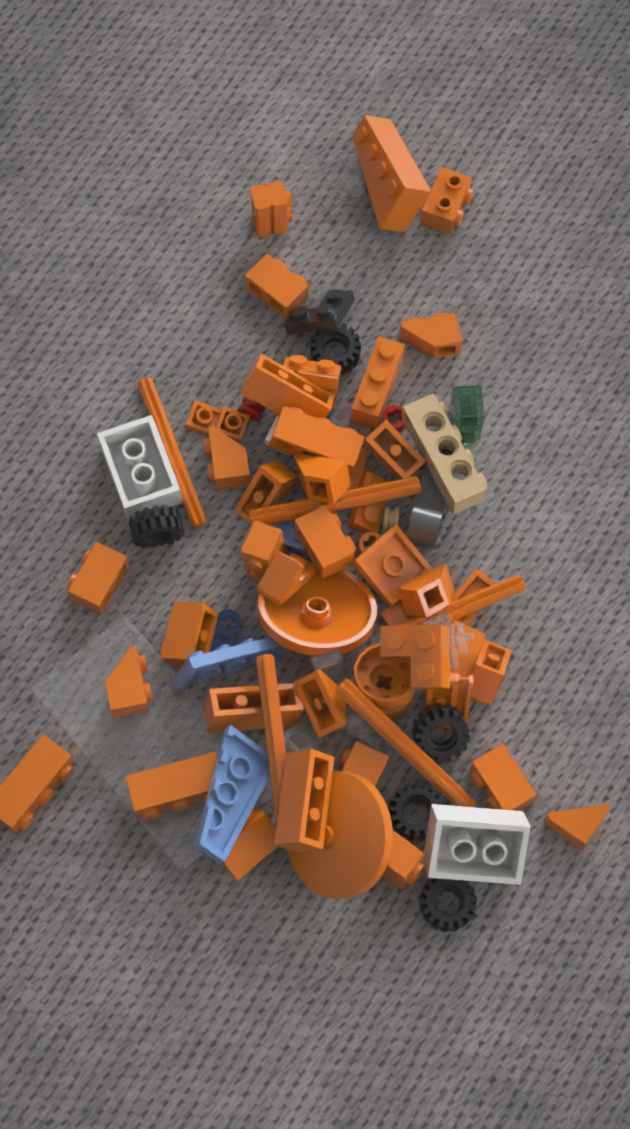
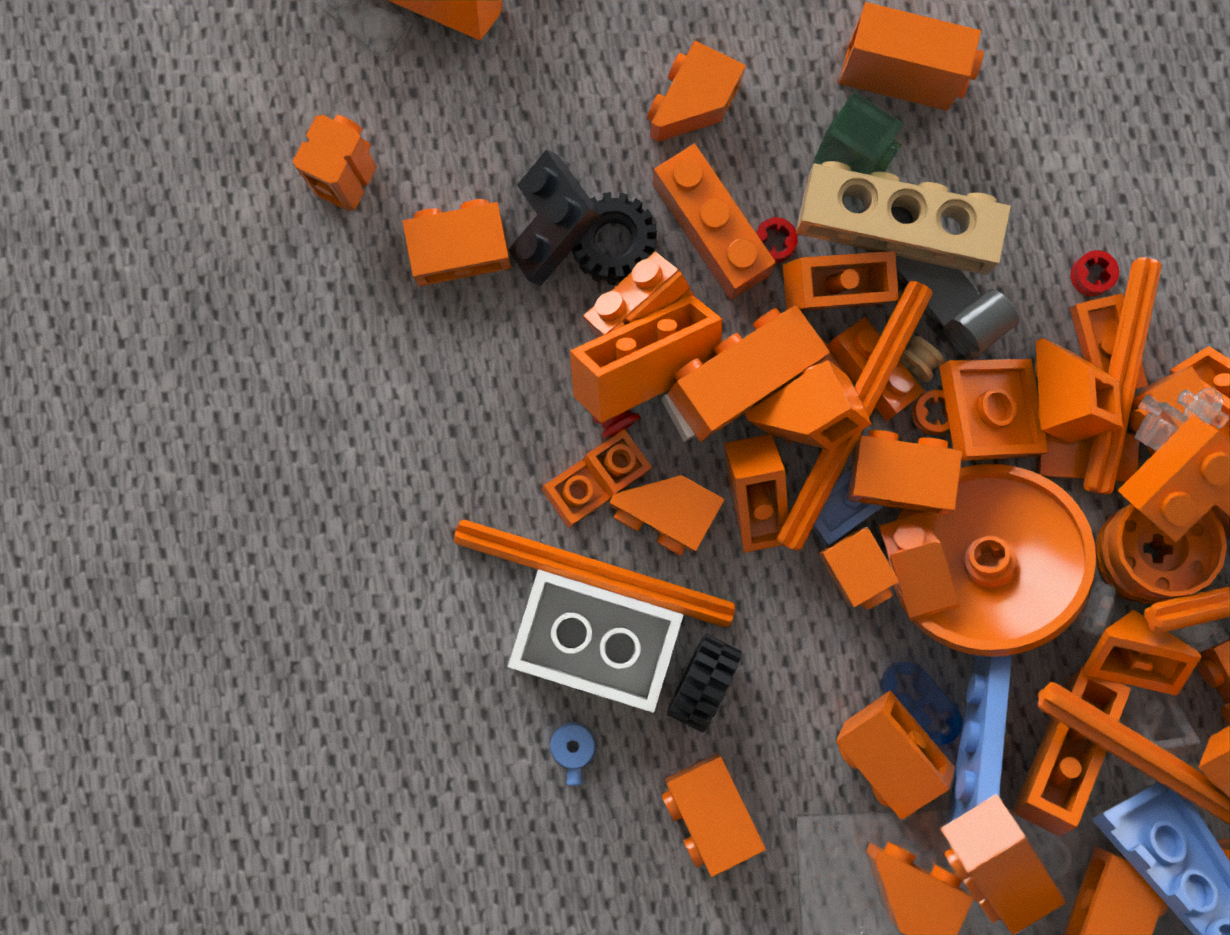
camera: 50 degrees left, 15 degrees up
(81, 506) = (572, 760): none -> medium blue piece
(169, 696) = (1000, 866): none -> orange brick
(494, 564) = (1109, 273): none -> red bush
(527, 407) = (911, 57): none -> orange brick

